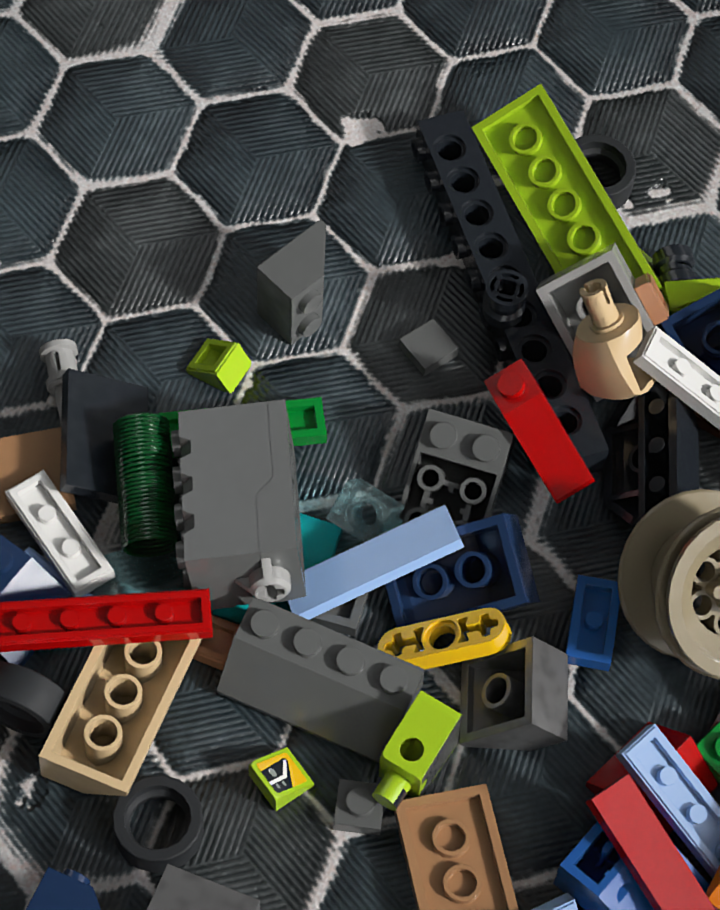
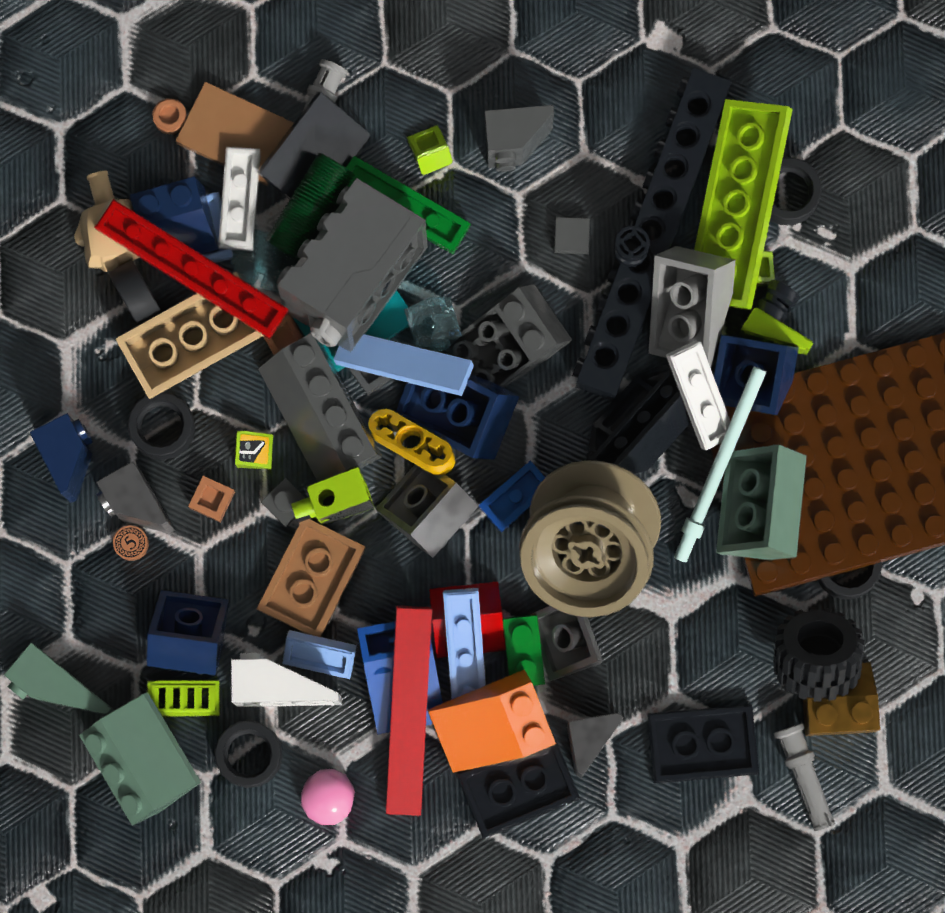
camera: 45 degrees right, 20 degrees up
(277, 860) = (211, 499): none -> nougat plate
(539, 431) = (577, 351): red slope -> none
(605, 342) = (660, 331): tan piece -> none
(651, 298) = (728, 315): nougat tile -> none

